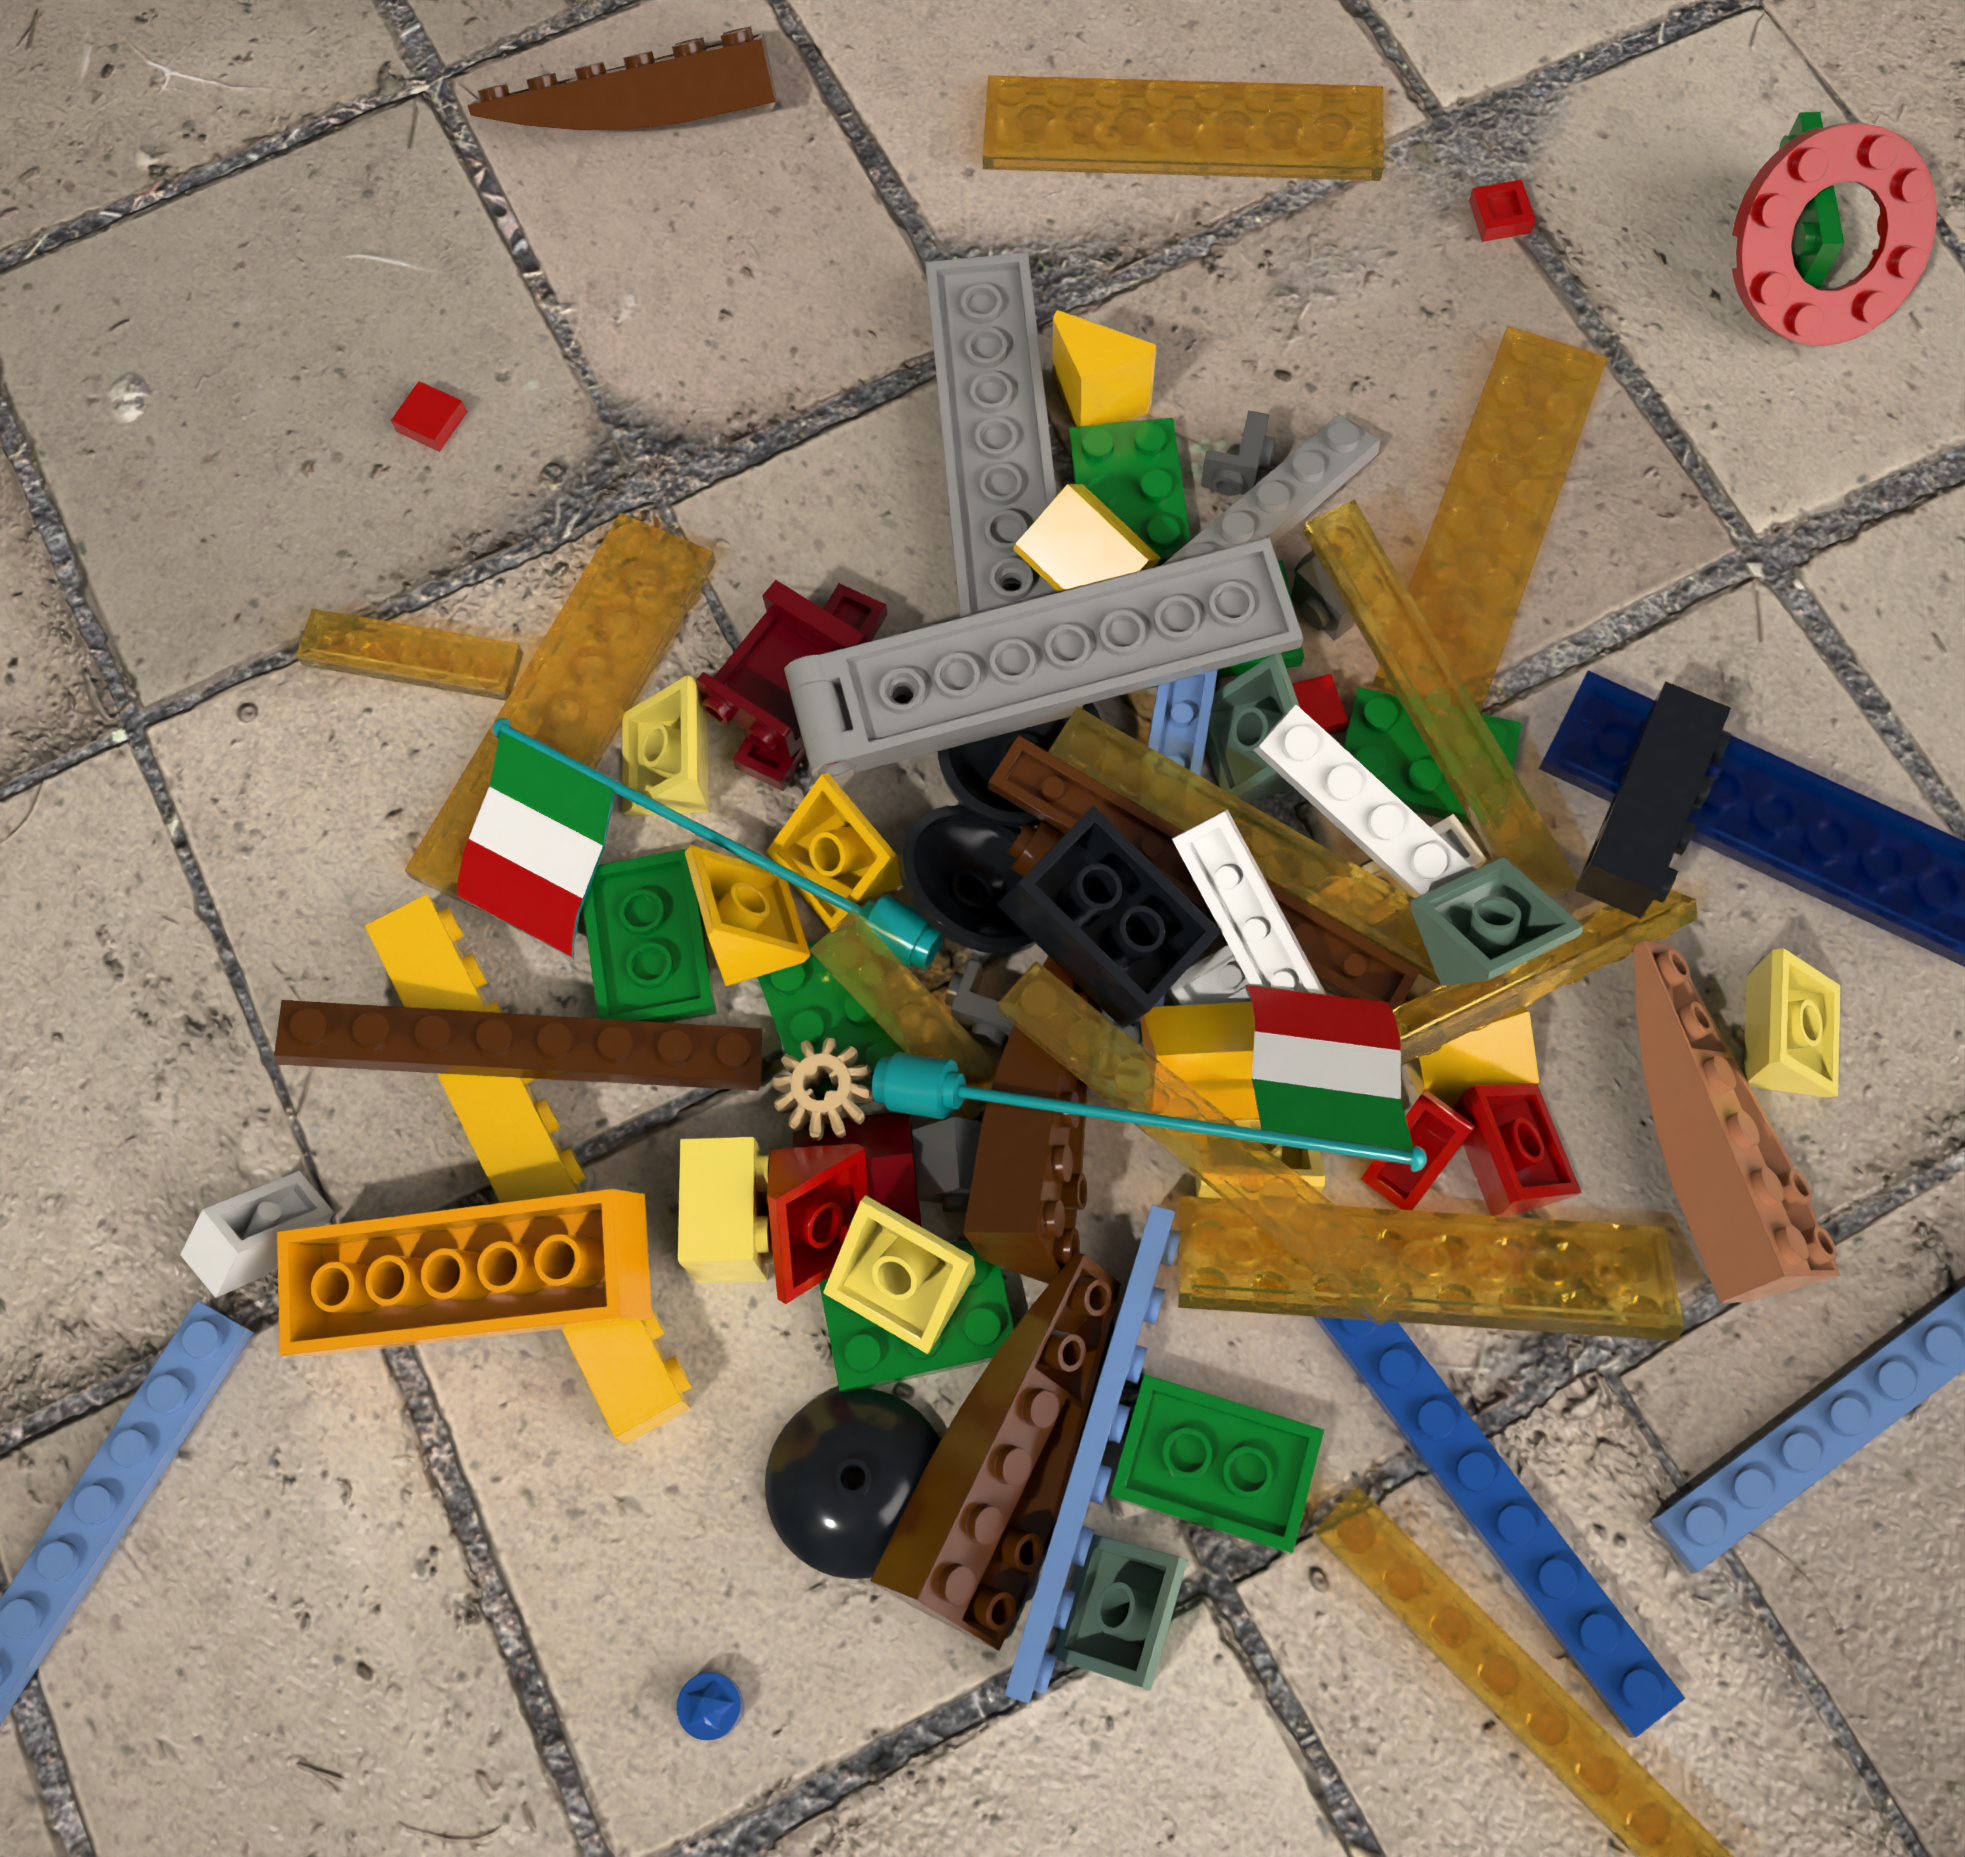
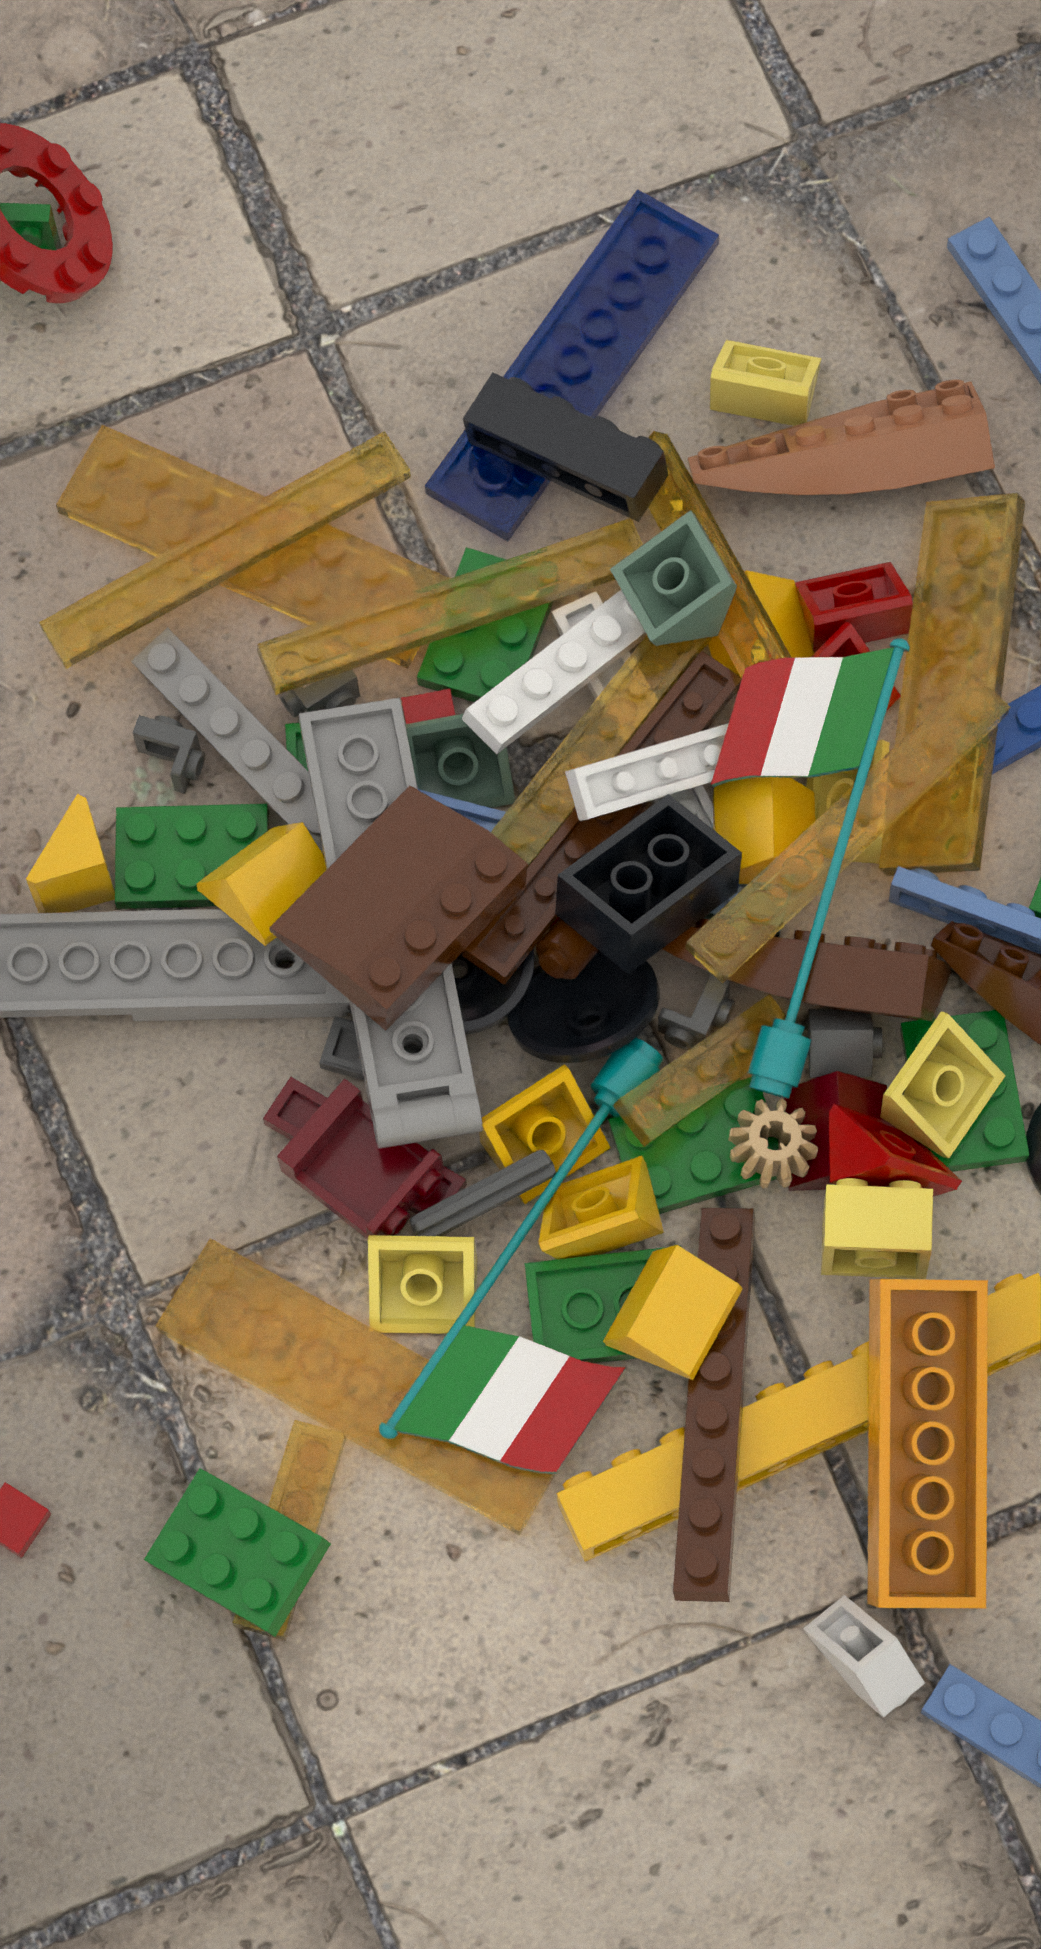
camera: 85 degrees left, 0 degrees up
(378, 604) = (237, 1552): none -> green plate
(616, 992) = (674, 1311): none -> yellow slope
(755, 796) = (484, 1195): none -> dark grey axle
(1046, 654) = (401, 904): none -> reddish brown slope
(1477, 479) = (225, 549): none -> clear yellow plate

